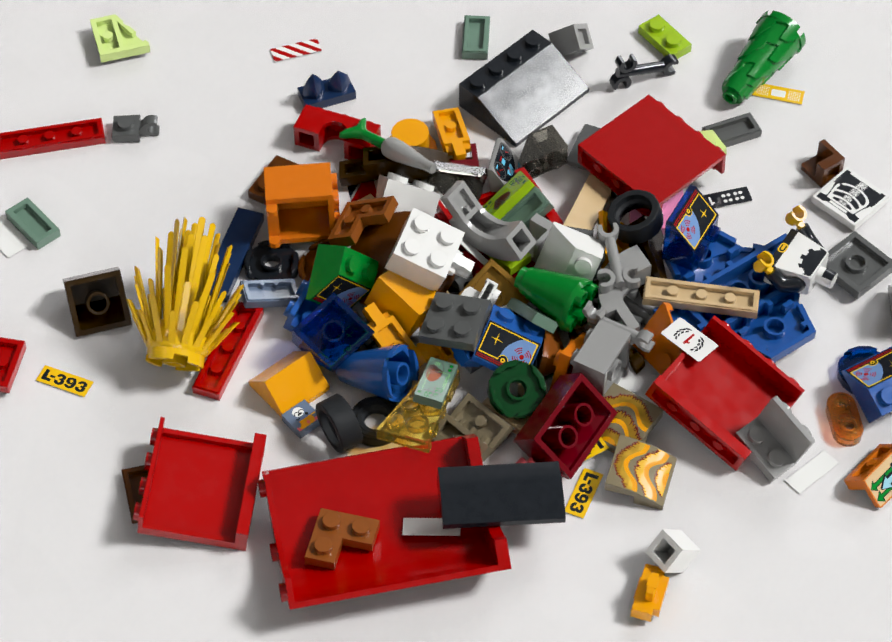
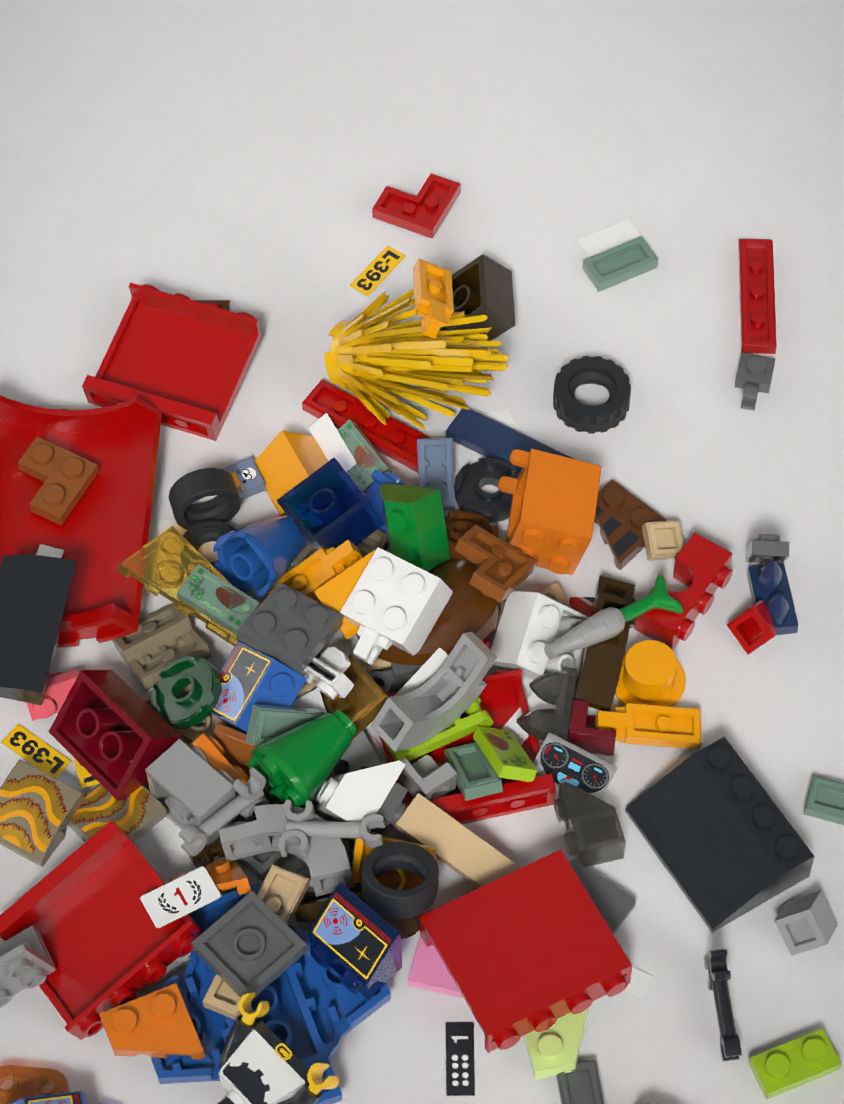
camera: 105 degrees right, 5 degrees up
(161, 252) = (432, 296): none -> light orange hinge
(165, 198) = (591, 371): none -> black tyre
(257, 363) = (331, 442): none -> white sticker
(264, 345) = (365, 455): none -> sand green tile
(295, 152) = (662, 539): none -> tan tile
(299, 86) = (767, 547): none -> dark grey plate
(354, 95) = (753, 627): none -> red slope
(714, 286) = (249, 946): none -> dark grey plate
(784, 338) = (153, 1026): none -> orange wing

